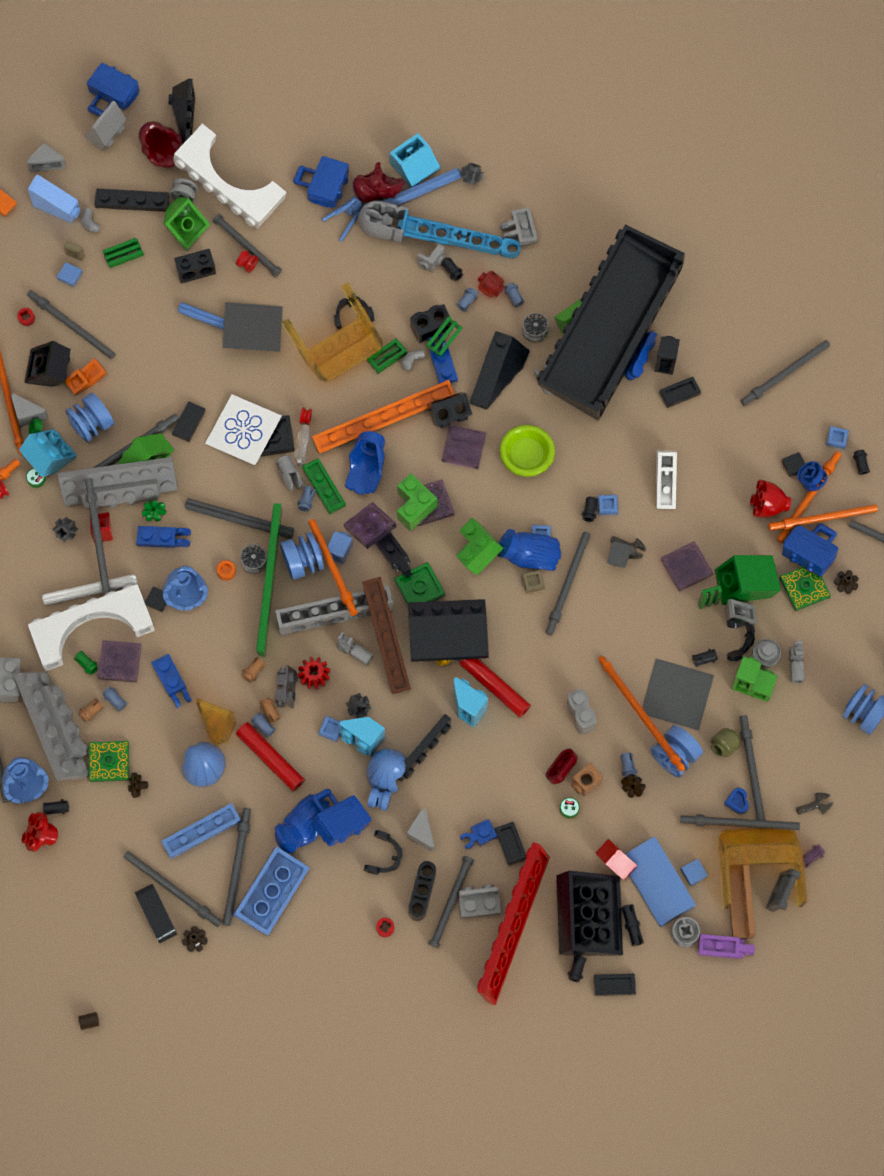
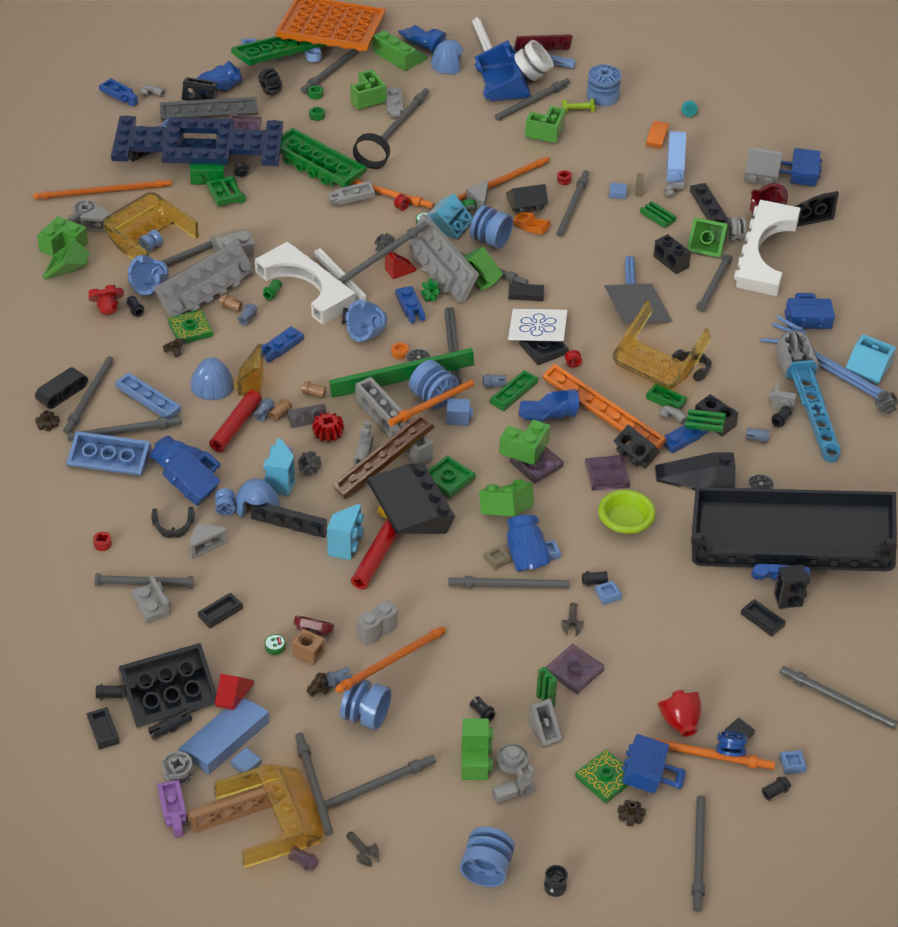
camera: 70 degrees right, 25 degrees down
(45, 159) = (709, 147): light grey slope -> none
(119, 661) = (282, 307): clear purple plate -> none
(247, 261) = (698, 284): red wheel -> none
(288, 470) = (514, 361): light grey hinge -> none
(303, 438) = (542, 363): clear plate -> none
(370, 525) = (488, 424): clear purple plate -> none
(376, 185) = (826, 341): dark red hair -> none
(394, 554) = (470, 447): black hinge -> none
(422, 881) = (146, 554): black beam -> none
(480, 833) = (220, 585): blue plate -> none
(490, 284) = (783, 444): clear red head -> none
(512, 291) = (788, 462): sand blue pin -> none
(513, 925) = (135, 624): red plate -> none
(523, 226) = (856, 453): light grey hinge -> none
(619, 554) = (557, 605): dark grey panel -> none
(666, 479) = (661, 625): white slope -> none
(677, 694) = (433, 701): dark grey sticker -> none
(725, 742) = (396, 747): olive head -> none
(737, 655) = (527, 711): black piece -> none
(737, 801) = (339, 779): blue tile -> none
(747, 578) = (587, 719): green slope -> none
(782, 890) = (243, 835): dark grey plate -> none
(789, 523) = (667, 737): orange bar -> none

